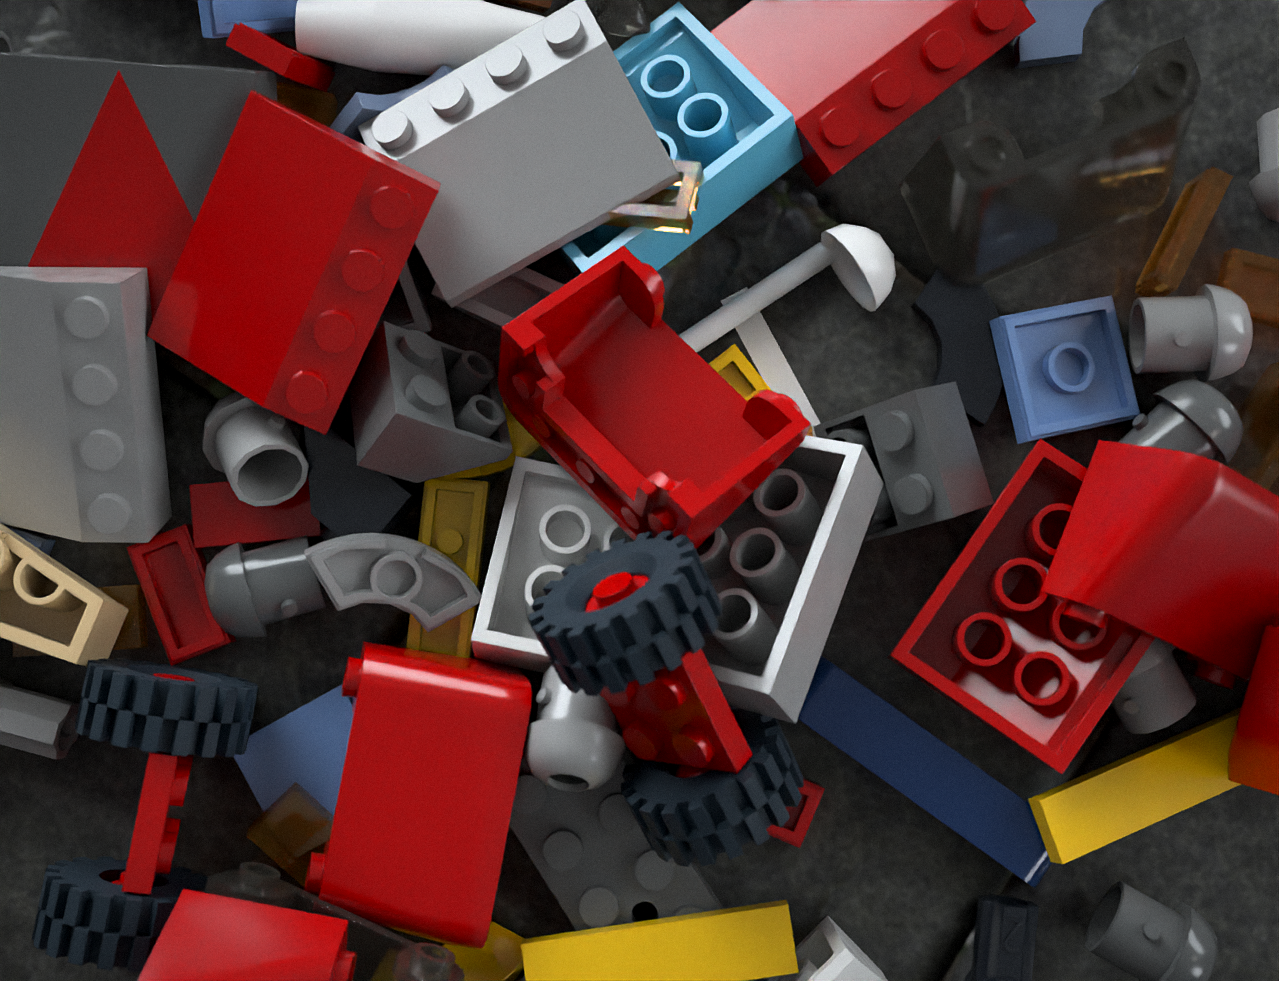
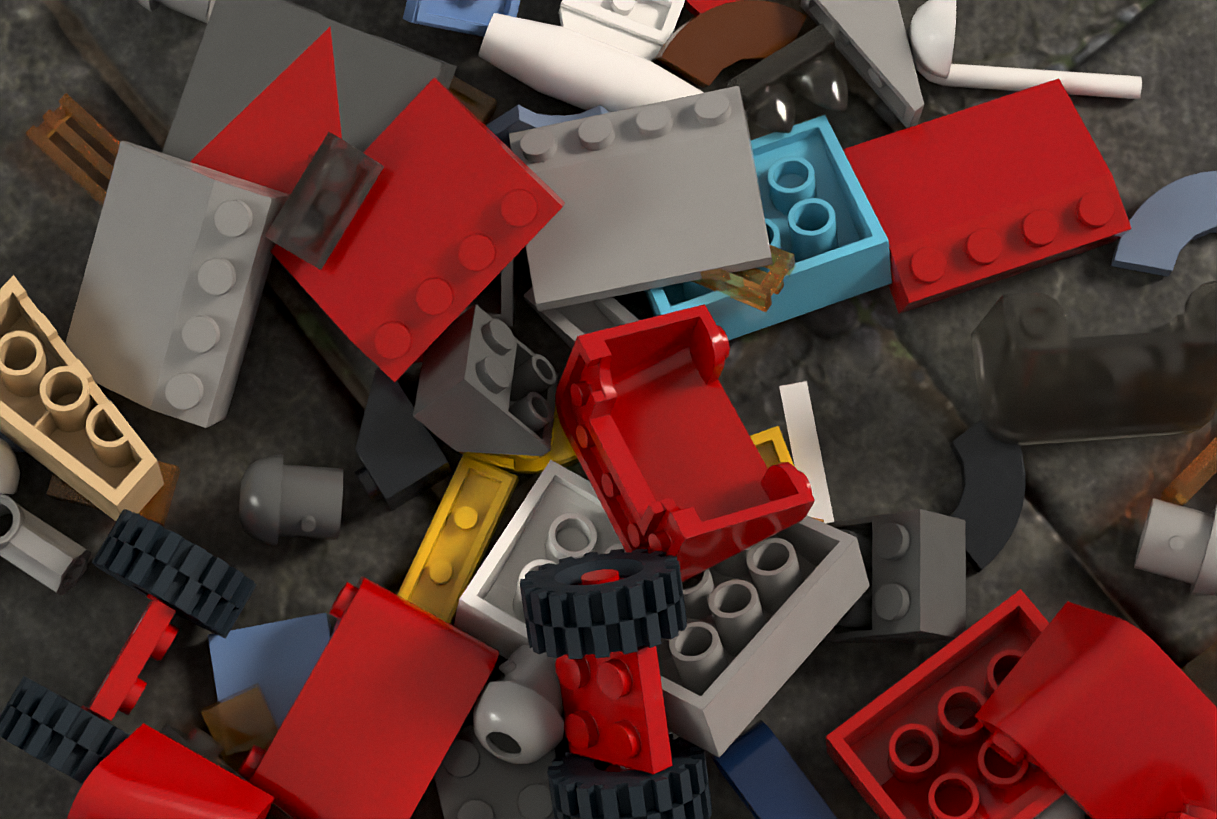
camera: 20 degrees right, 10 degrees down
(174, 589) = (211, 487): red tile -> none
(179, 266) = (324, 200): none -> clear smoke tile
(224, 519) = (302, 435): red tile -> none
(255, 450) = (326, 377): light grey piece -> none
(280, 57) = (463, 56): red tile -> none
(395, 573) = (411, 524): light grey tile -> none
(856, 256) = (911, 380): white piece -> none
(1064, 369) = (1071, 543): medium blue tile -> none
(1190, 420) = (1172, 621): dark grey piece -> none

